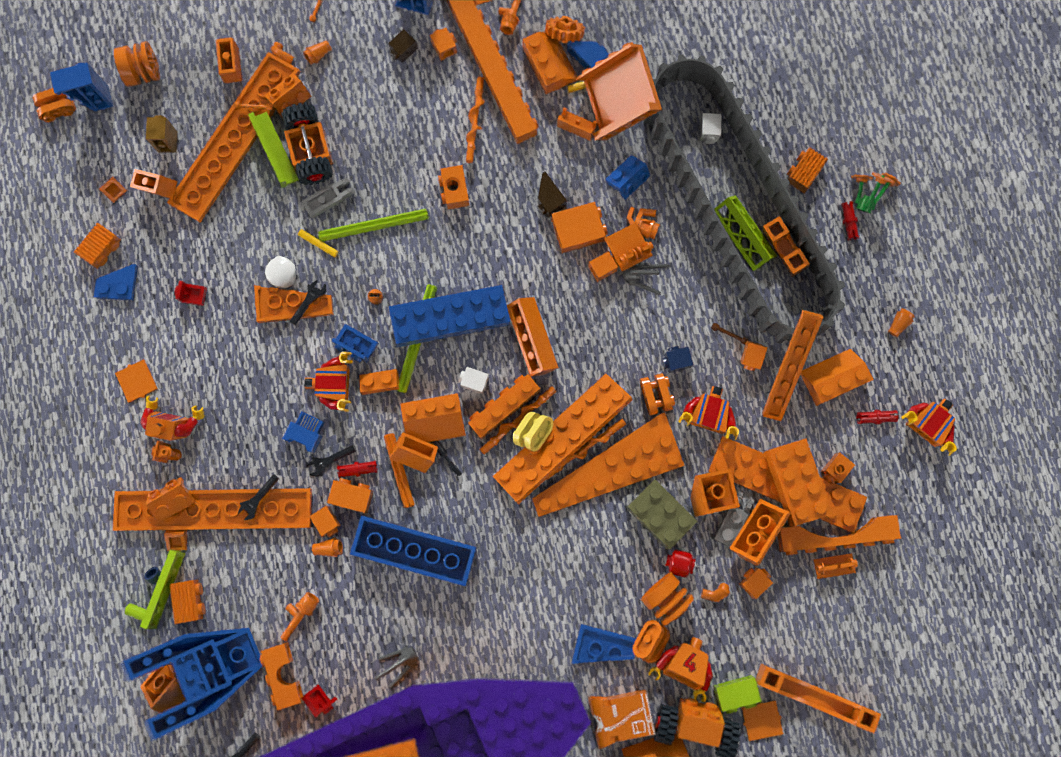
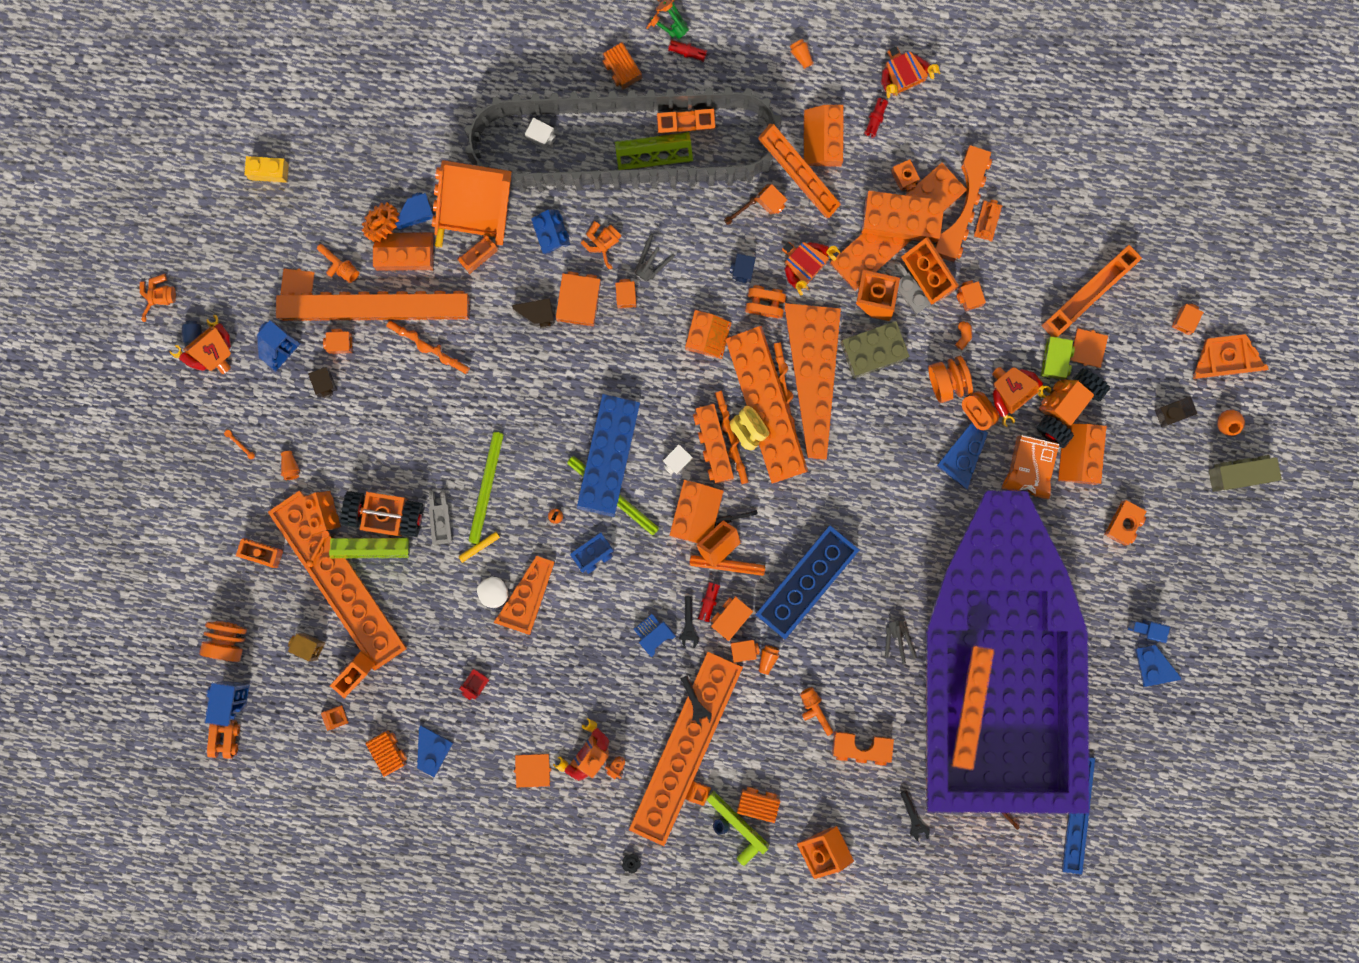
camera: 60 degrees left, 5 degrees up
(91, 507) = (631, 858): none -> black plate
(169, 499) = (660, 782): orange bracket -> none
(207, 669) = (828, 807): blue wedge -> none
(277, 50) = (279, 498): orange arm -> none
(312, 295) = (528, 571): black piece -> none
(318, 701) = (900, 724): red bracket -> none
(332, 382) = (620, 590): torso -> none
(379, 382) = (638, 547): orange plate -> none
(449, 177) = (477, 388): orange brick -> none
(532, 336) = (661, 389): orange brick -> none
(602, 355) = (708, 334): none -> orange slope
(629, 247) = (619, 262): orange hinge -> none
(680, 563) = (924, 353): red head -> none

